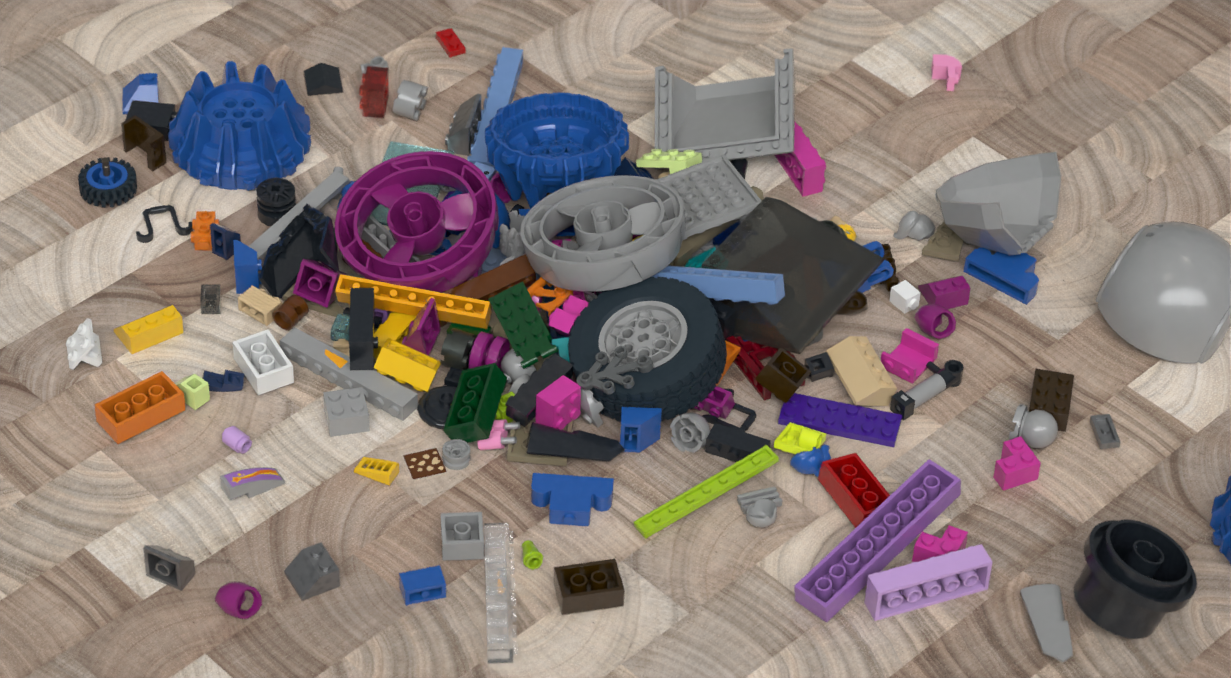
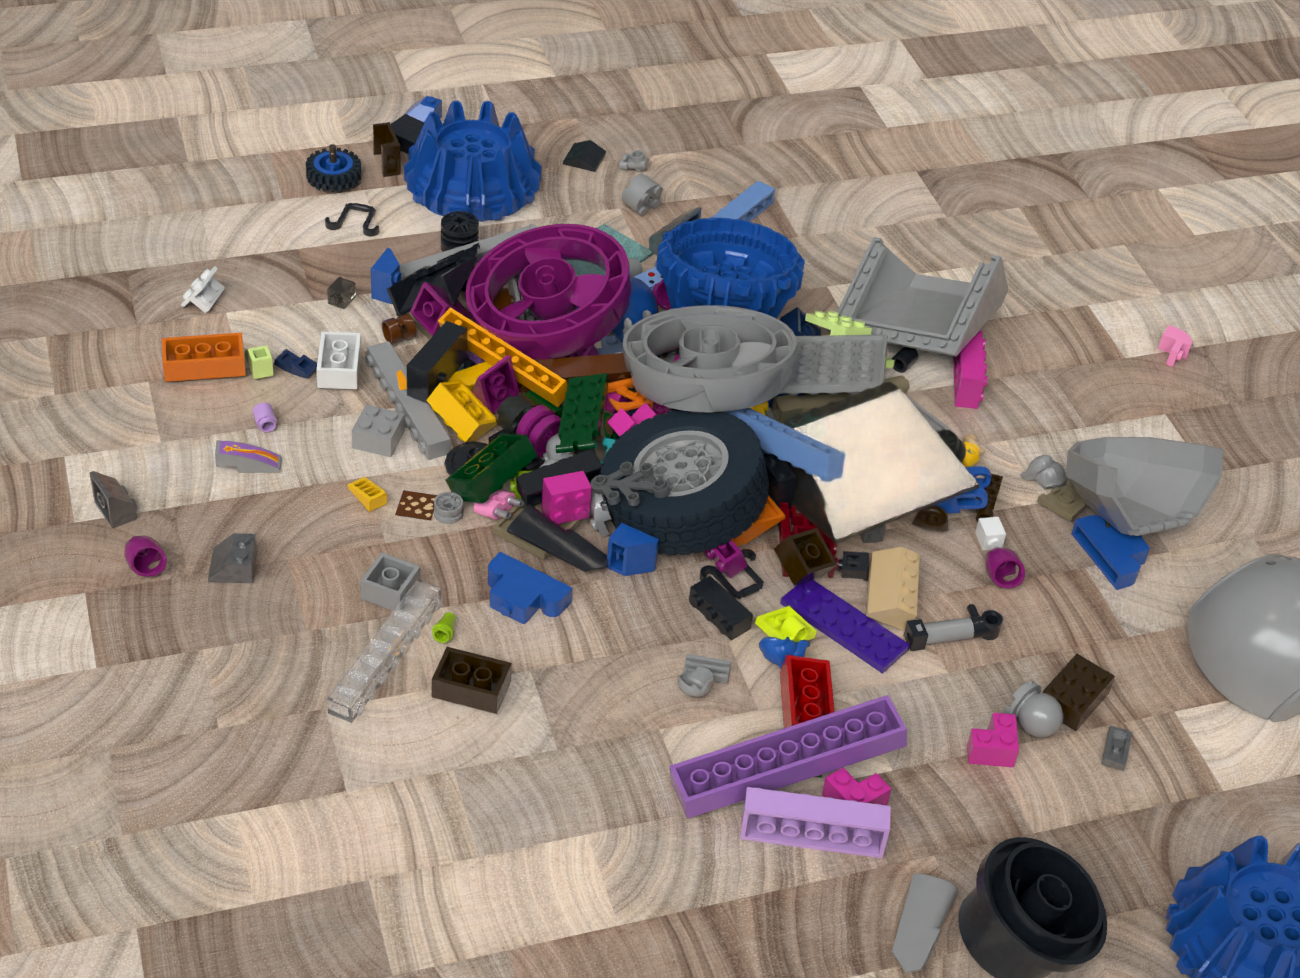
camera: 25 degrees right, 0 degrees up
(150, 329) = (270, 298): yellow slope -> none
(201, 225) = (383, 236): orange brick -> none
(222, 240) = (388, 240): dark blue slope -> none
(258, 304) = (377, 310): tan brick -> none
(374, 92) = (615, 176): clear red brick -> none
(422, 585) = (321, 613): blue brick -> none
(450, 42) = (719, 164): red plate -> none
(689, 432) = (681, 574): light grey cylinder -> none
(706, 491) = (656, 637): lime tile -> none
(910, 356) = (955, 594): dark pink panel -> none
(947, 292) = (1036, 546): magenta slope -> none

